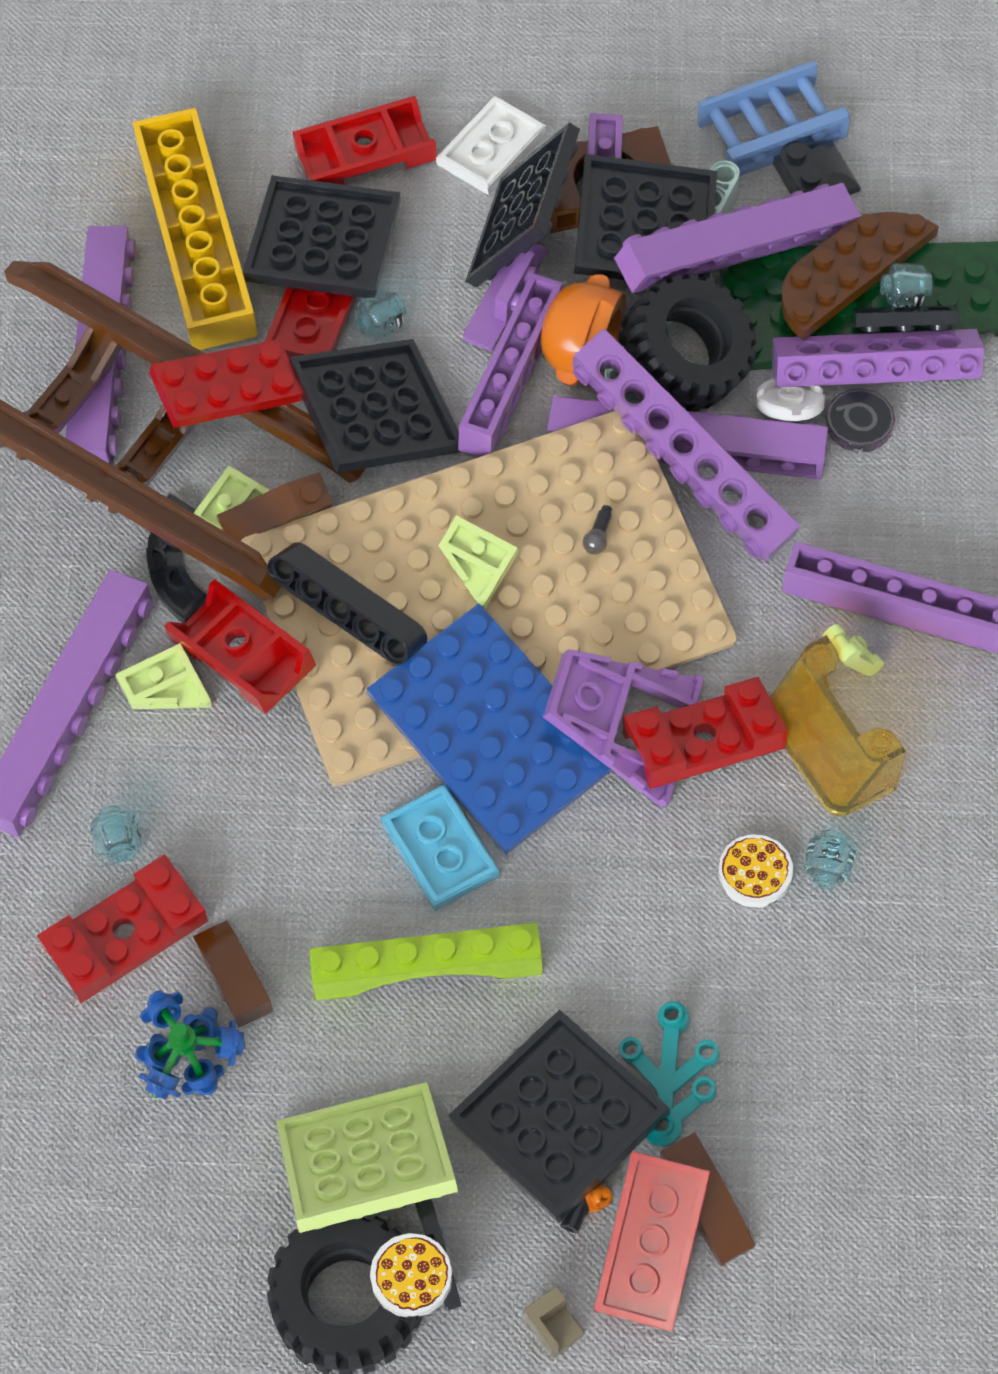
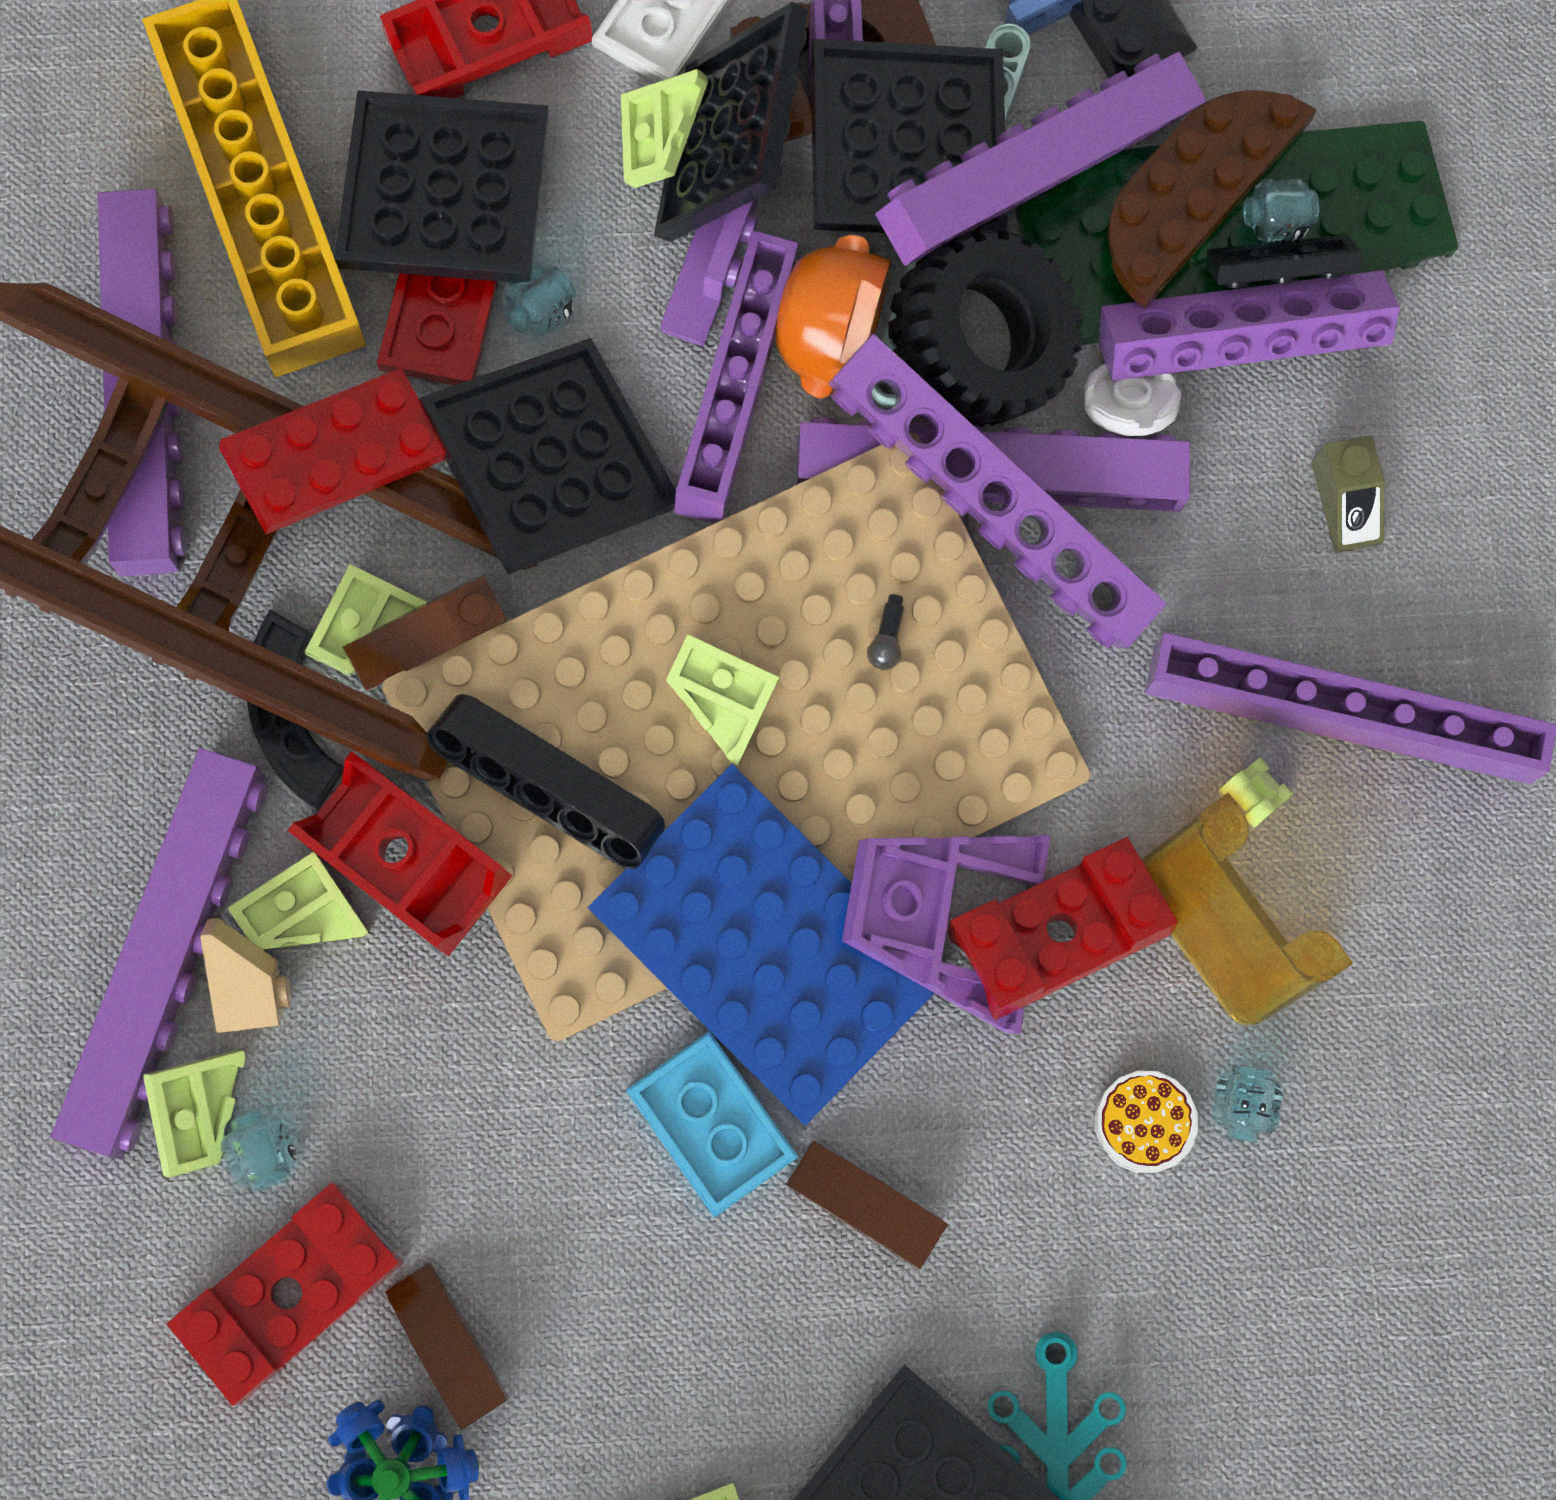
camera: 15 degrees left, 15 degrees up
(72, 802) = (191, 1110): none -> yellowish green wing
(119, 719) = (242, 980): none -> tan slope
(361, 966) = (713, 1308): lime arch -> none
(475, 210) = (658, 126): none -> yellowish green wing
(547, 904) = (867, 1205): none -> reddish brown slope
(860, 419) = (1228, 417): tile -> none
(943, 470) = (1351, 492): none -> olive slope

